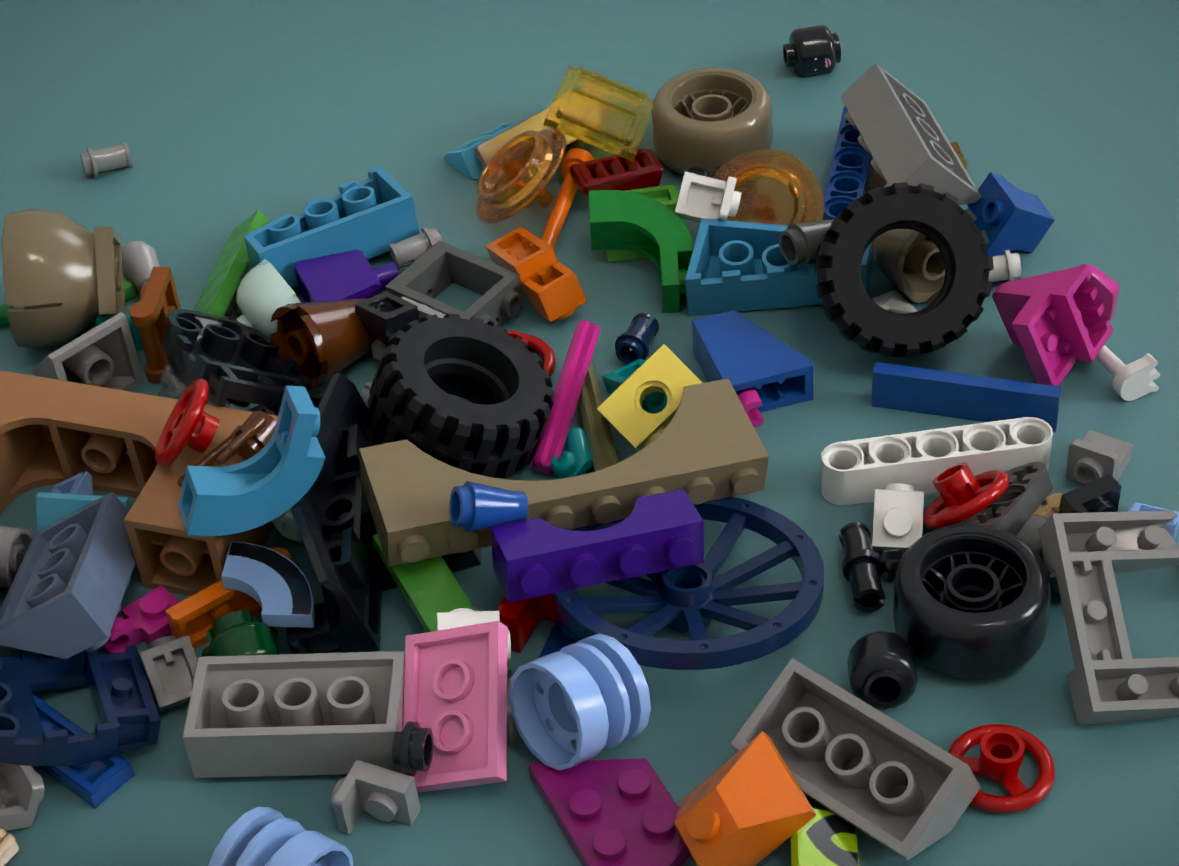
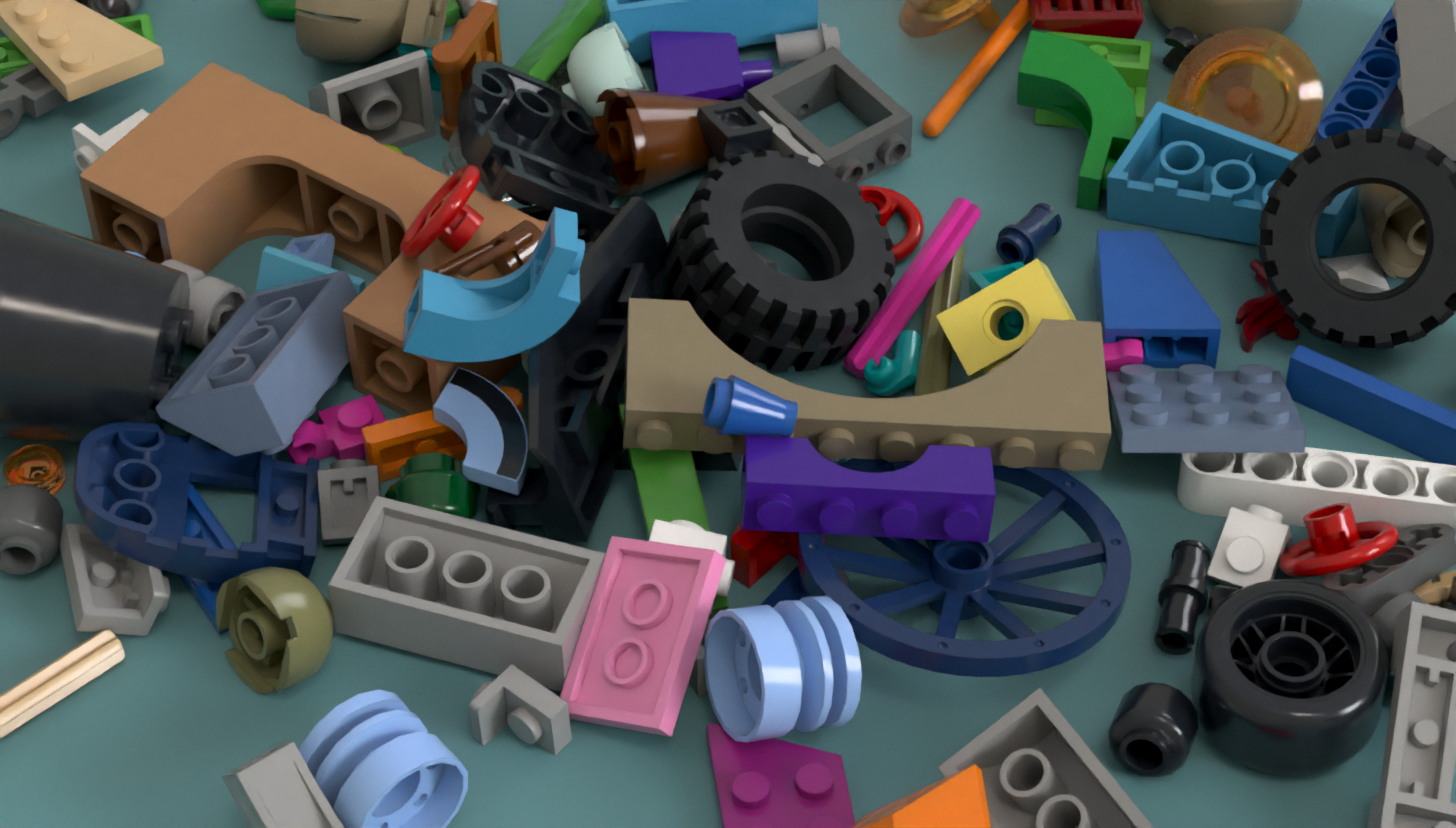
camera: 15 degrees right, 5 degrees up
(144, 786) = (277, 627): none -> olive cylinder
(413, 748) = (577, 670): black plate -> none
(543, 279) = (939, 119): orange slope -> none
(707, 198) = (1172, 77): white bracket -> none
(802, 240) = (1262, 164): dark grey cone -> none
(829, 425) = (1203, 410): none -> sand blue plate
(835, 350) = (1263, 315): none -> dark red piece

